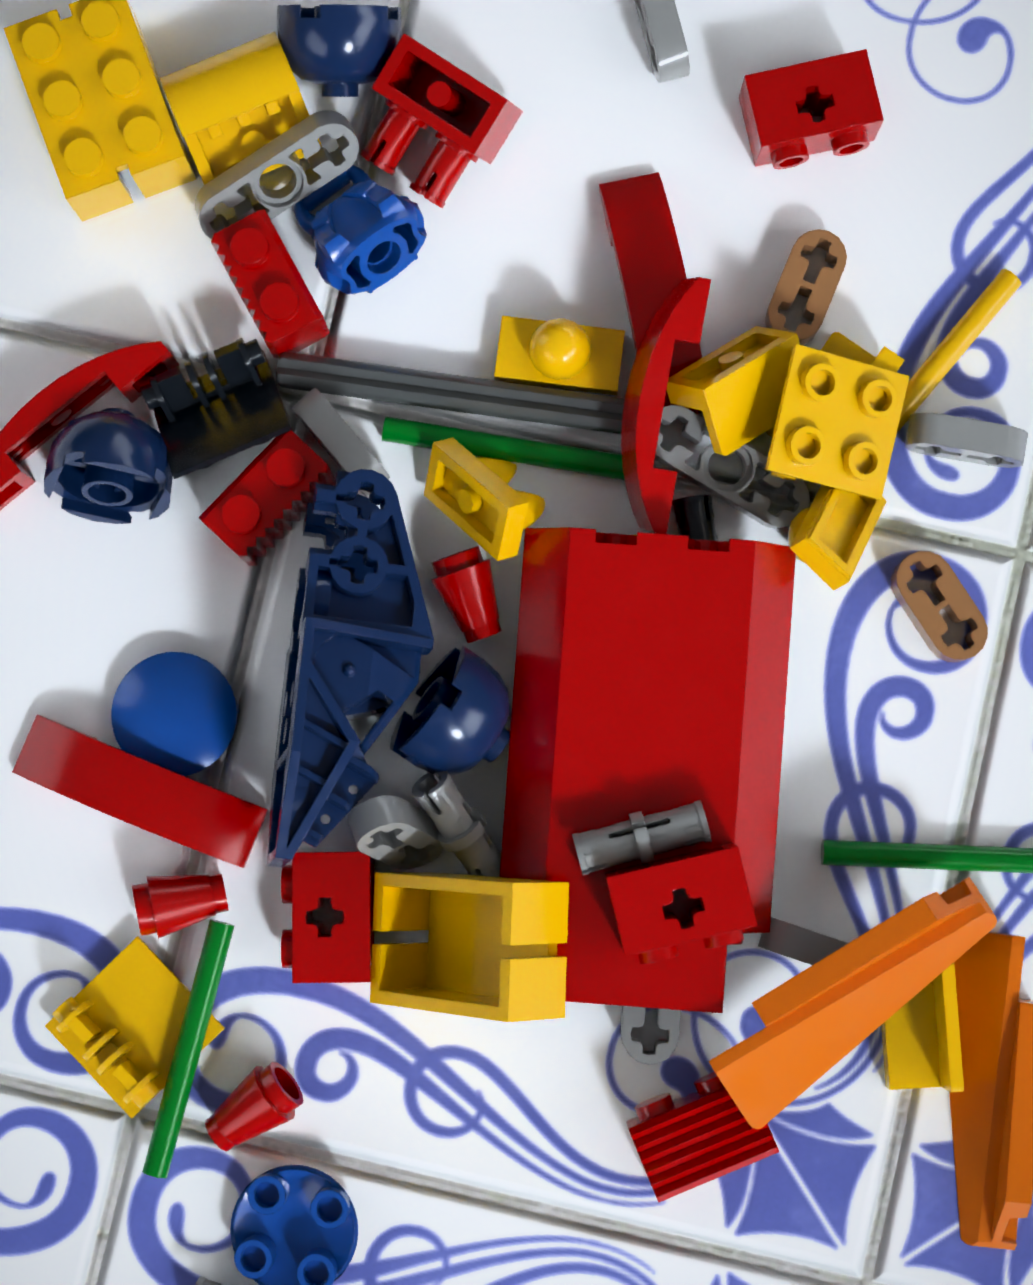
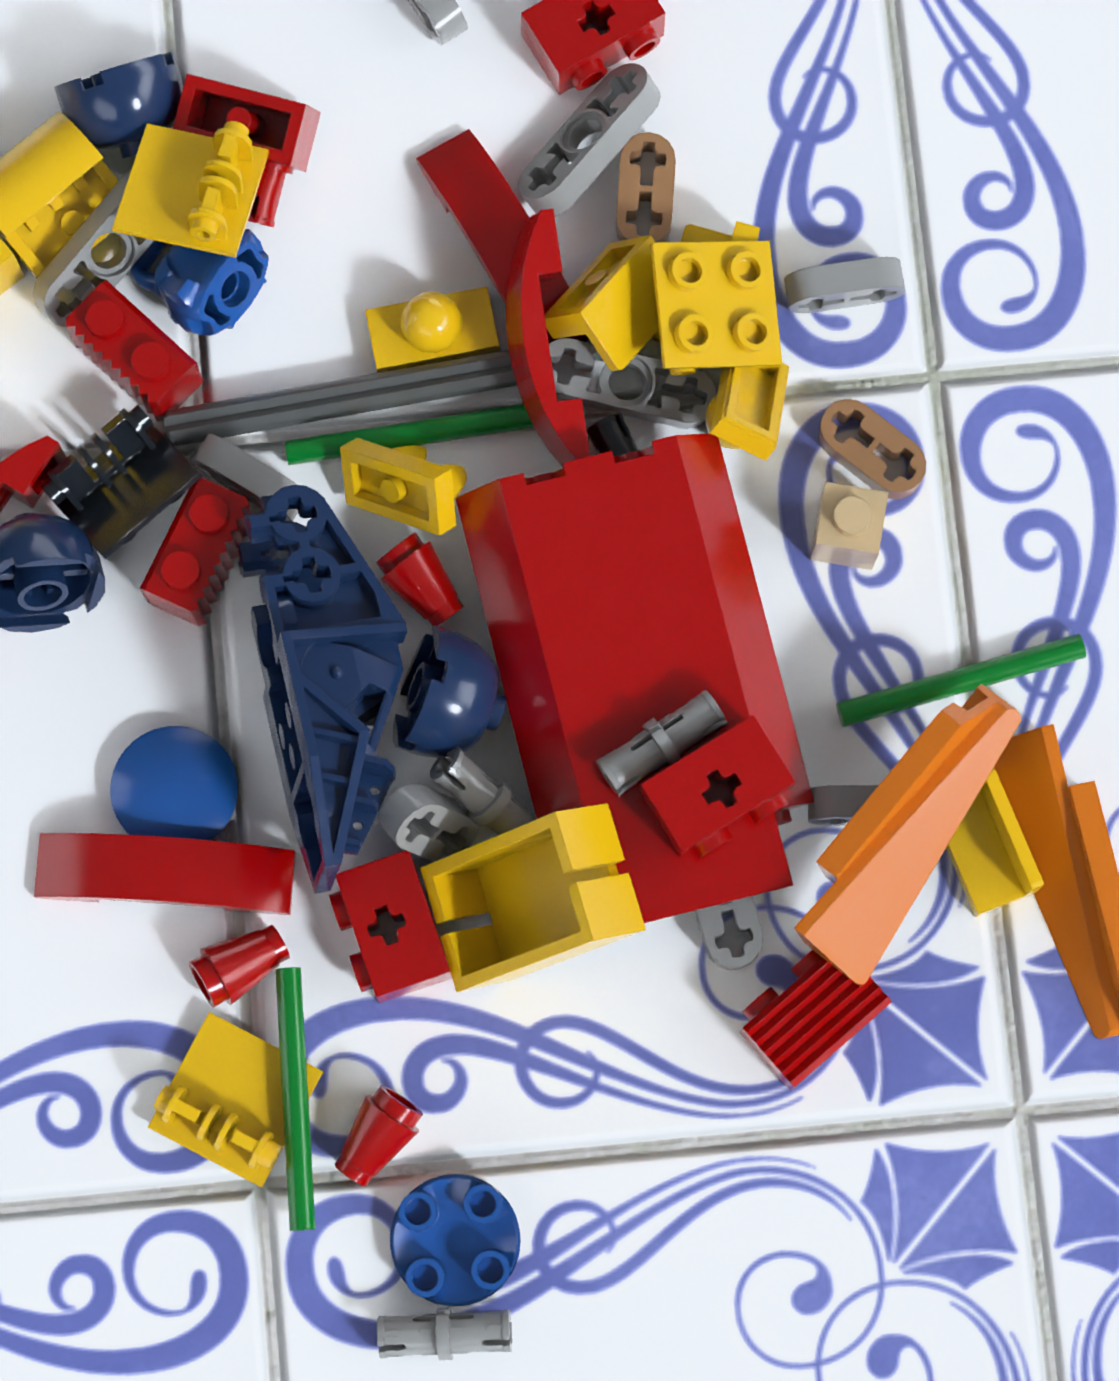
camera: 25 degrees left, 5 degrees down
(371, 147) = (192, 188): none -> yellow hinge
(816, 187) = (625, 96): none -> light grey beam
(893, 676) = (849, 526): none -> tan brick
(958, 341) = (805, 198): yellow bar -> none

